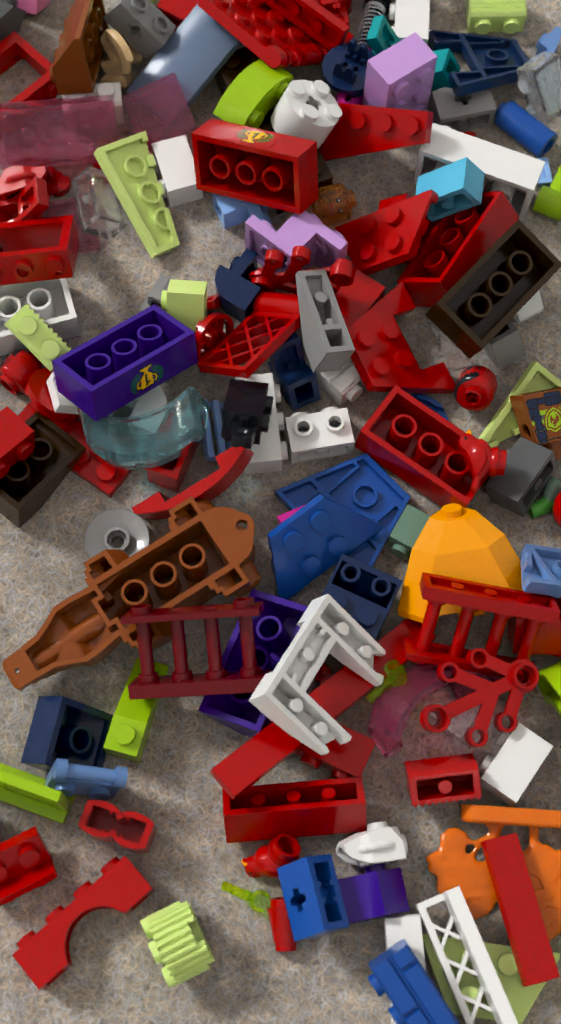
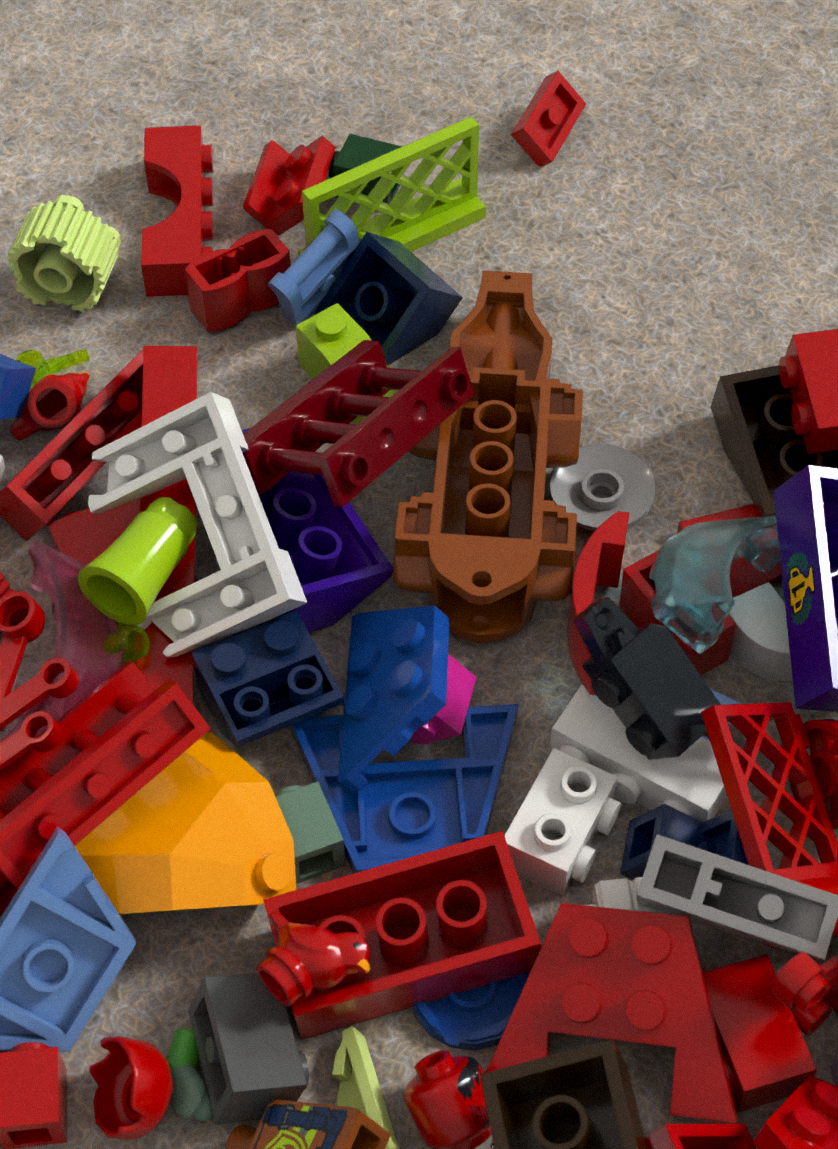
camera: 130 degrees right, 15 degrees down
(357, 688) = (139, 562): none -> lime plant

